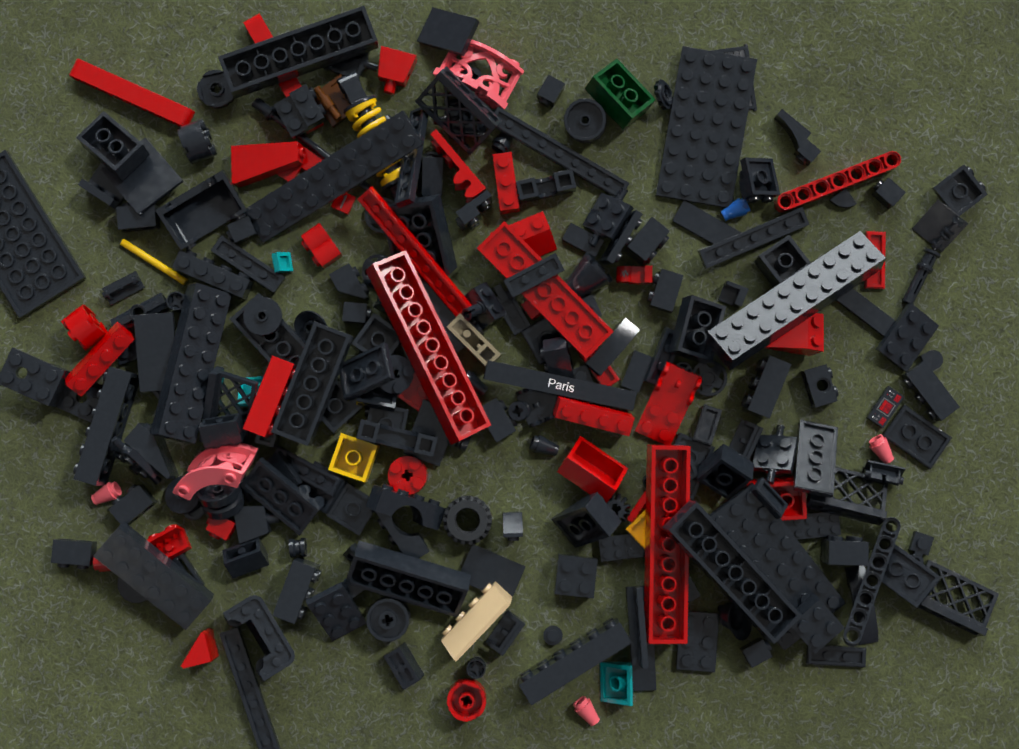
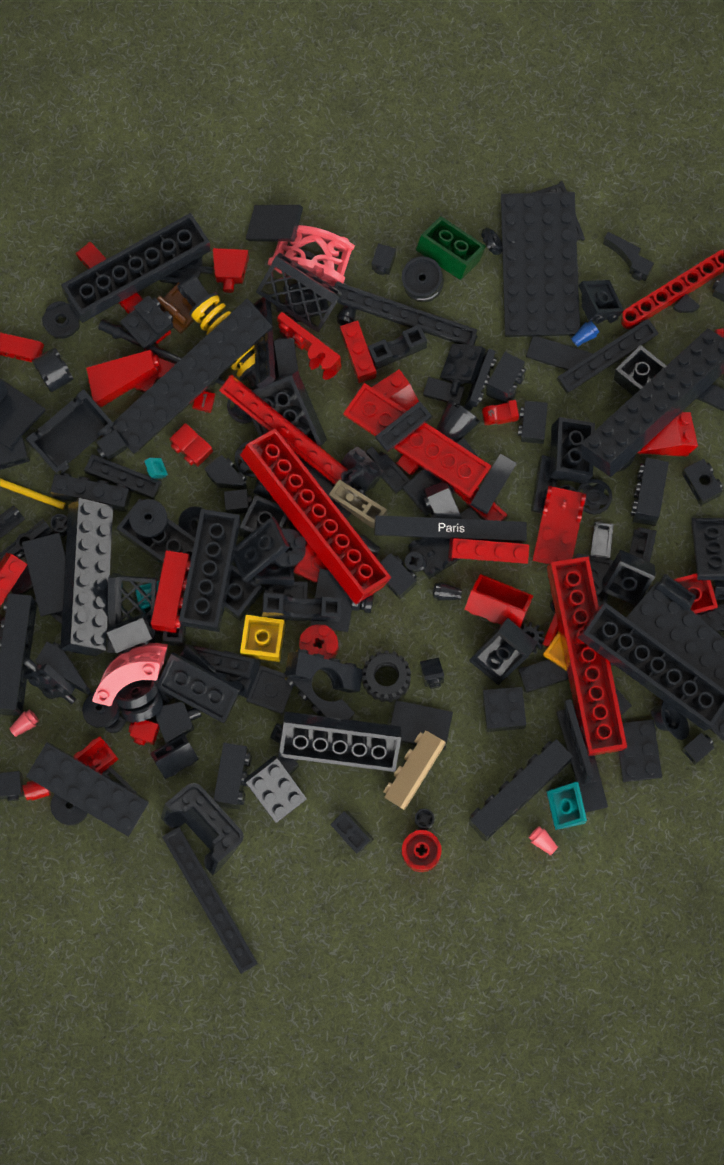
camera: 10 degrees left, 10 degrees down
(133, 504) = (53, 727): black brick -> none
(203, 650) = (148, 855): red slope -> none
(298, 547) = (223, 736): black wheel -> none
(388, 630) = (324, 776): black wheel -> none
(470, 214) = (329, 385): black plate -> none
(505, 632) = (446, 779): black hinge -> none
(552, 635) = (494, 773): black plate -> none
(636, 371) = (522, 503): black tile -> none
(733, 294) = (599, 411): black panel -> none
(775, 454) = (673, 553): black plate -> none

